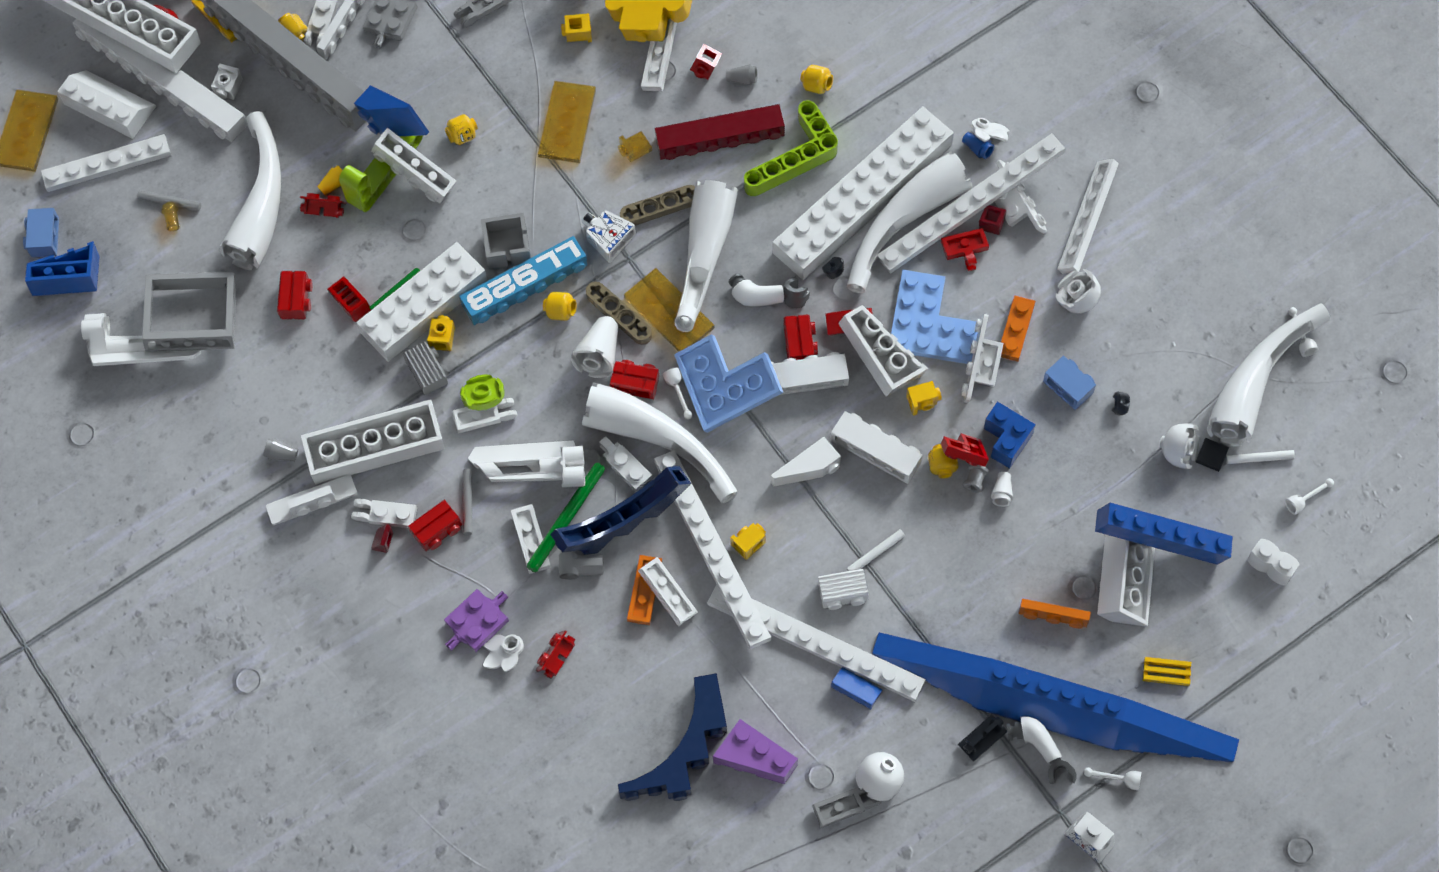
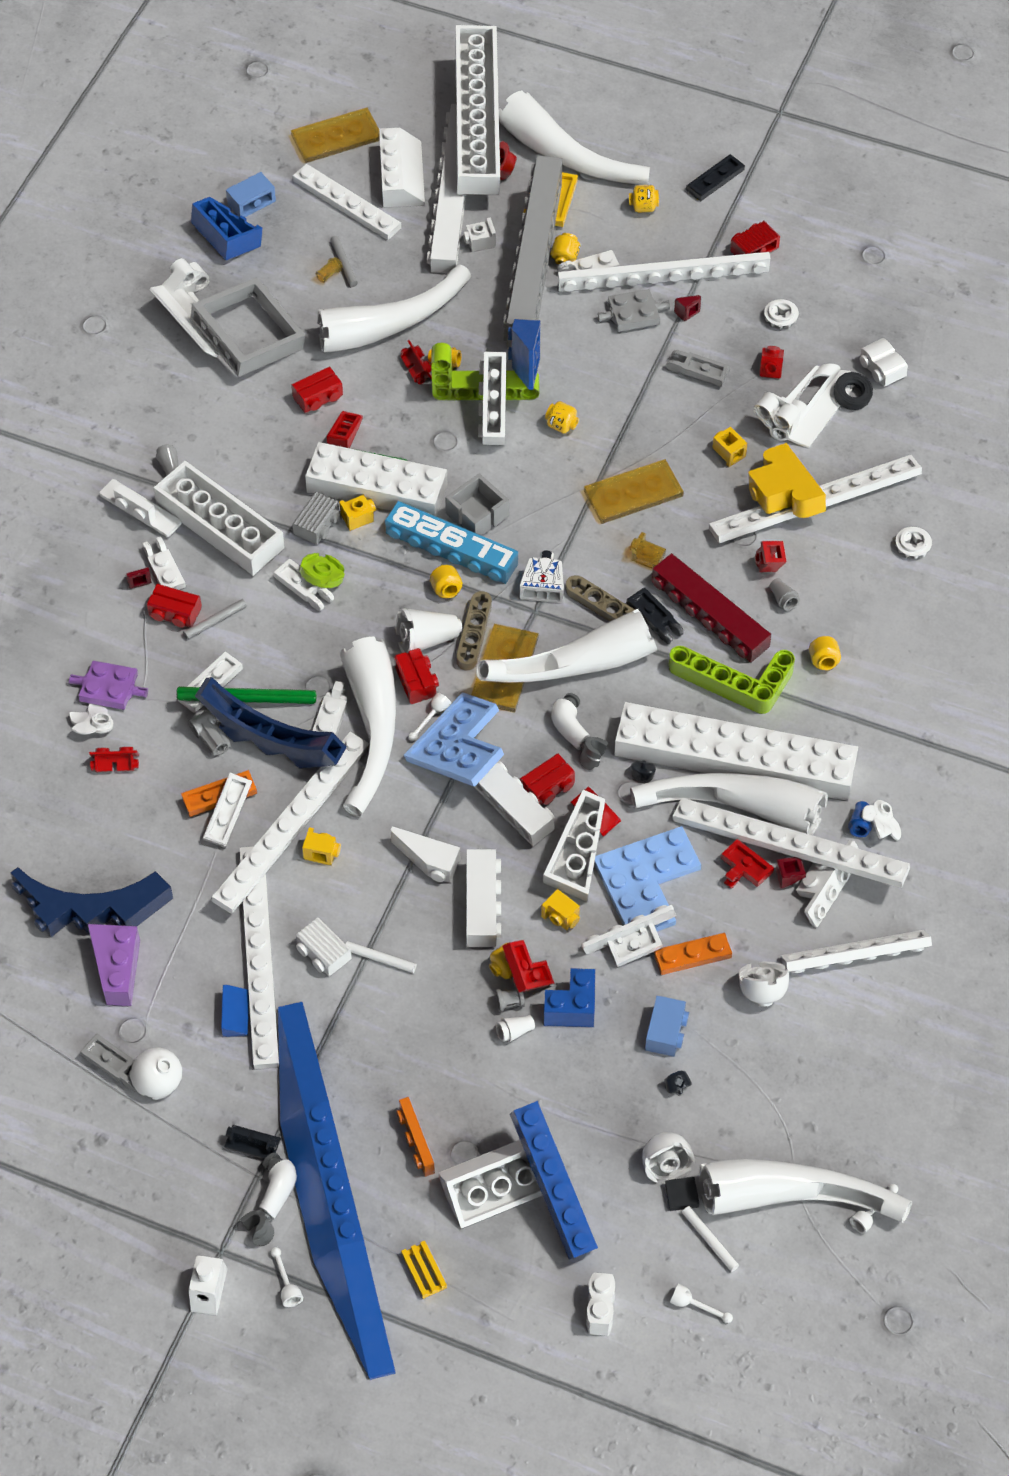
camera: 55 degrees right, 10 degrees down
(547, 460) = (295, 659): white panel -> none
(690, 174) = (655, 614): none -> black hinge

